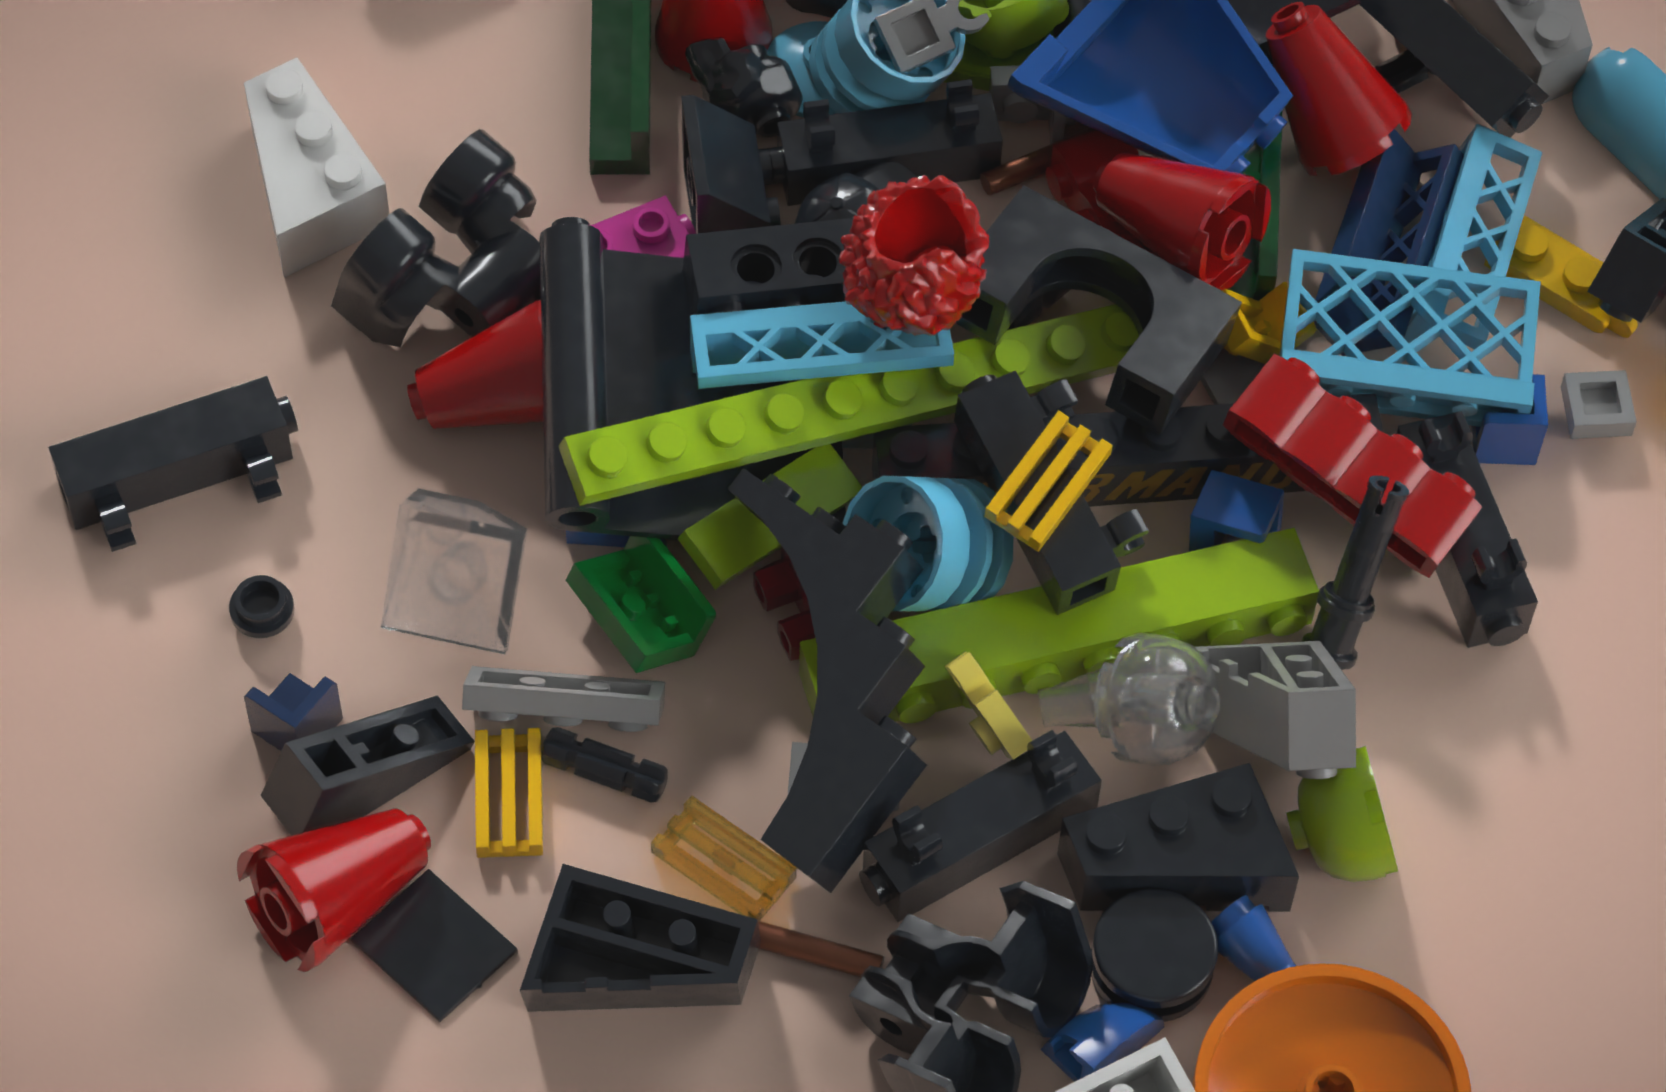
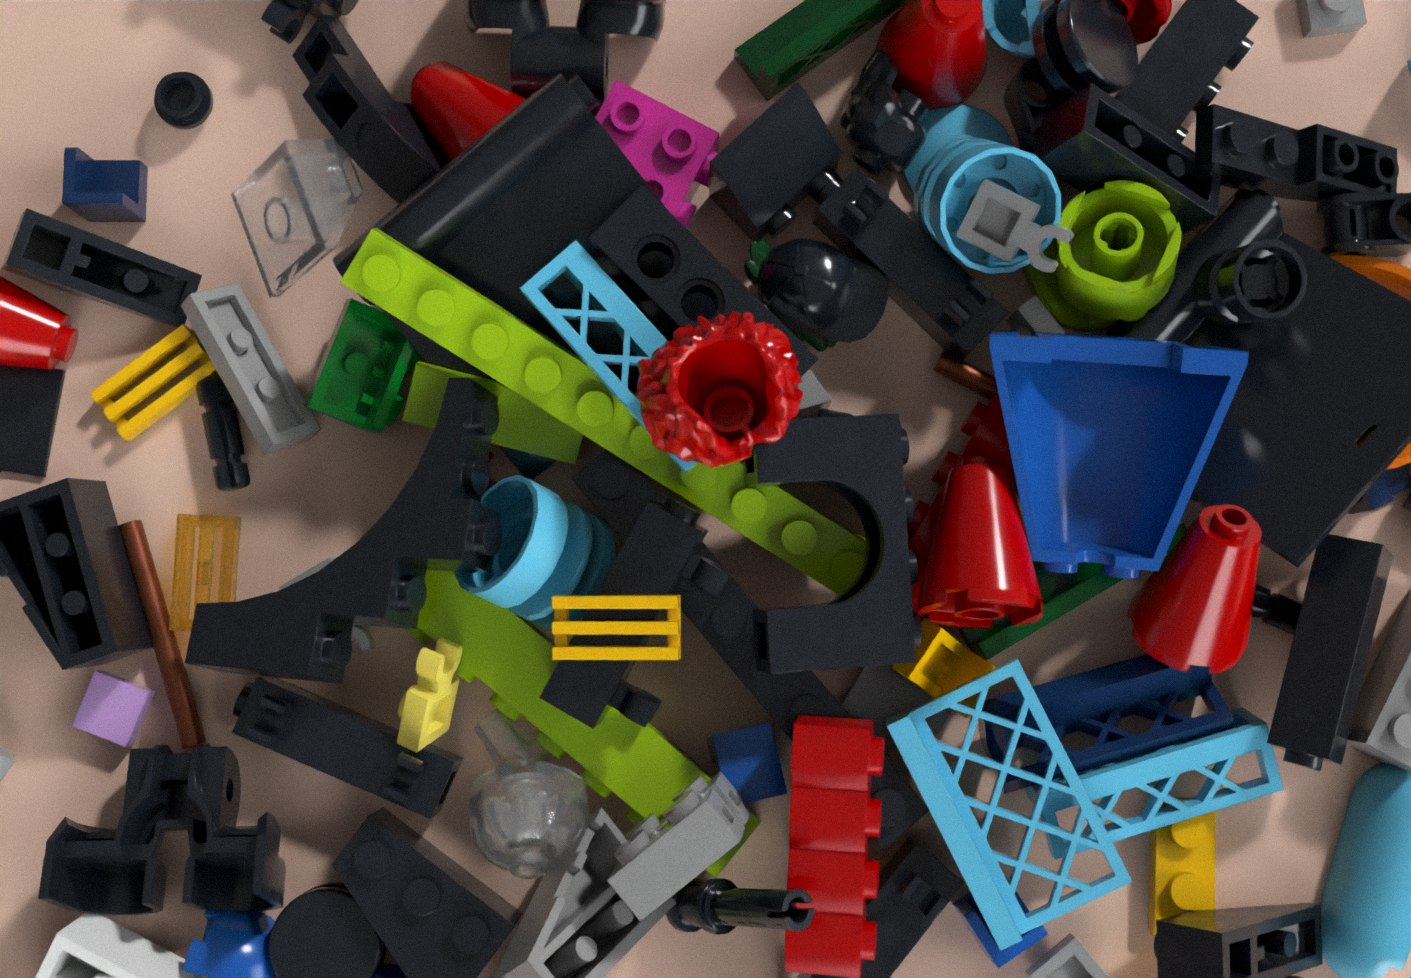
camera: 55 degrees right, 25 degrees up
(419, 455) = (357, 110): none -> black slope
(792, 1015) = (113, 708): none -> lavender tile
(1269, 558) = (674, 850): none -> light grey piece

